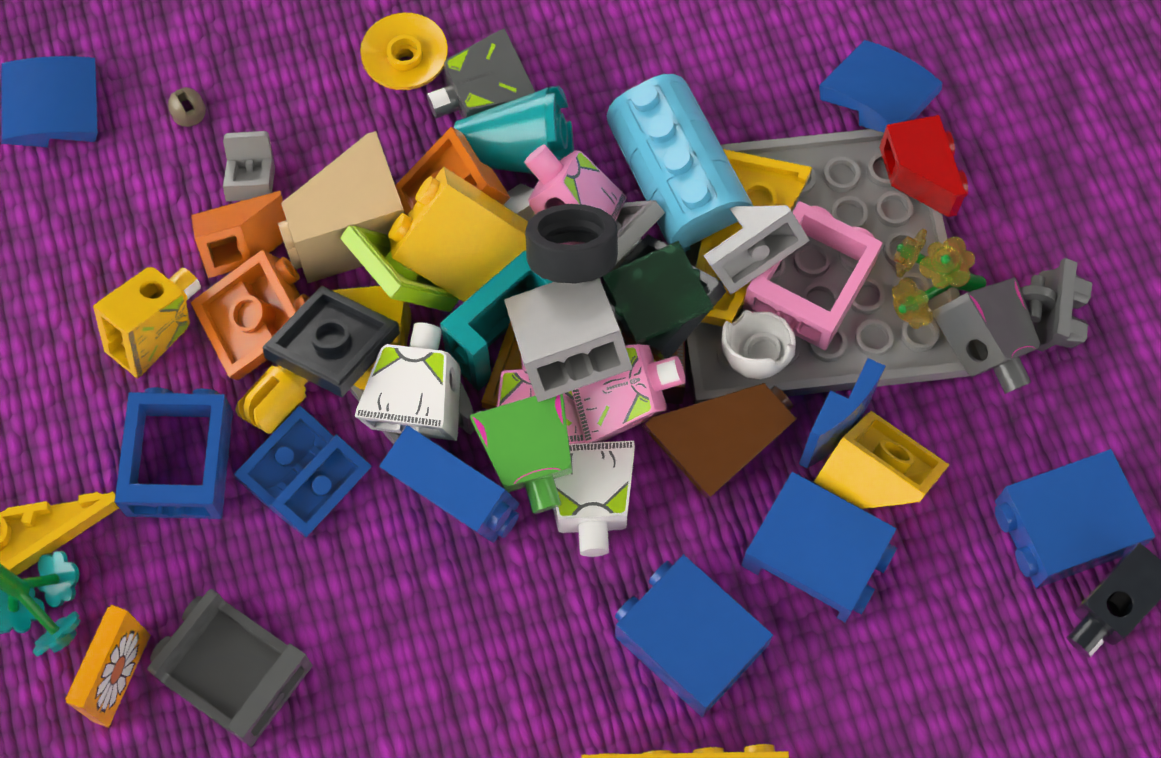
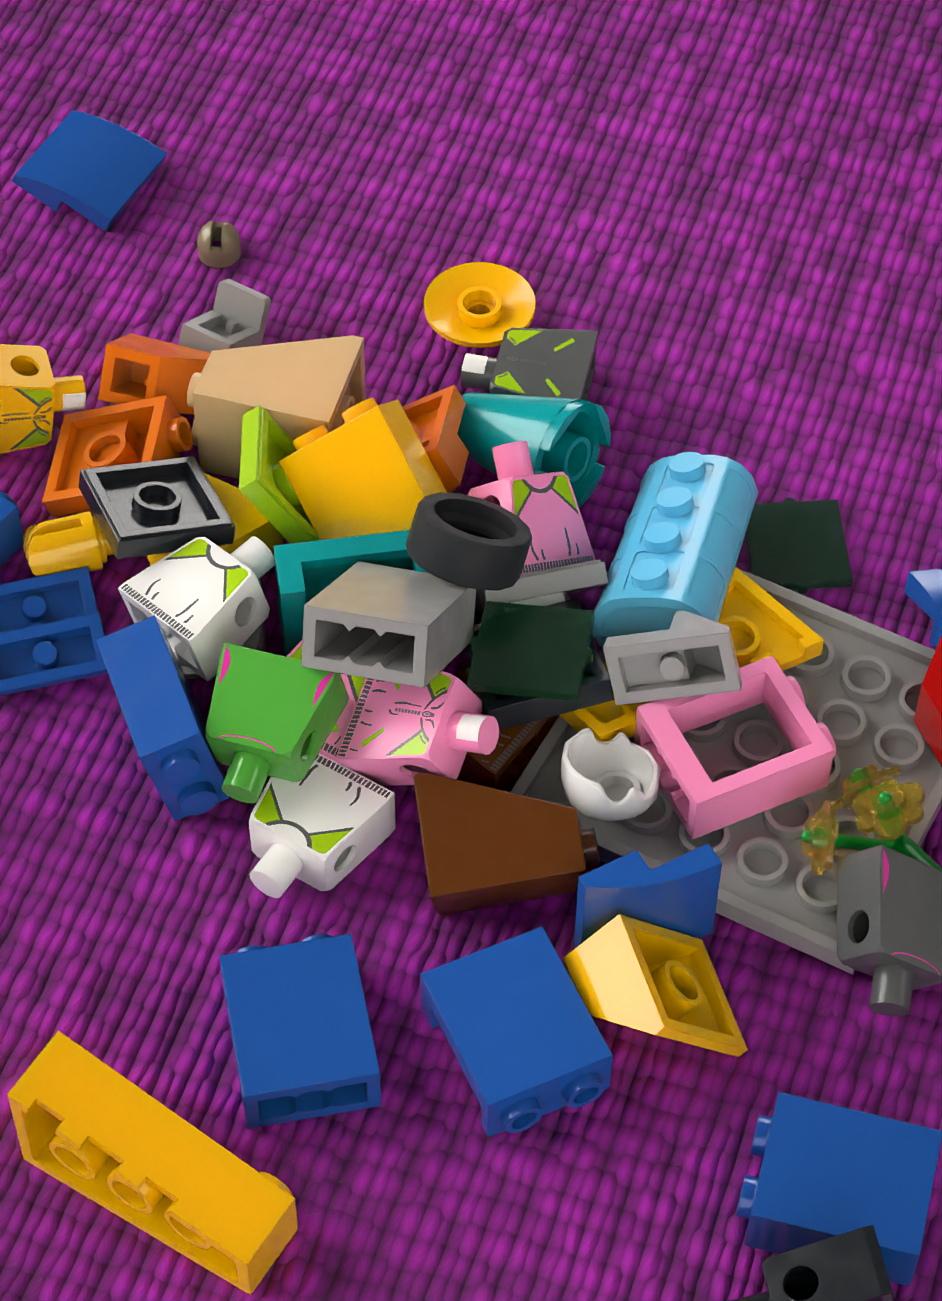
camera: 35 degrees right, 15 degrees down
(731, 102) = (798, 545): none -> clear green piece

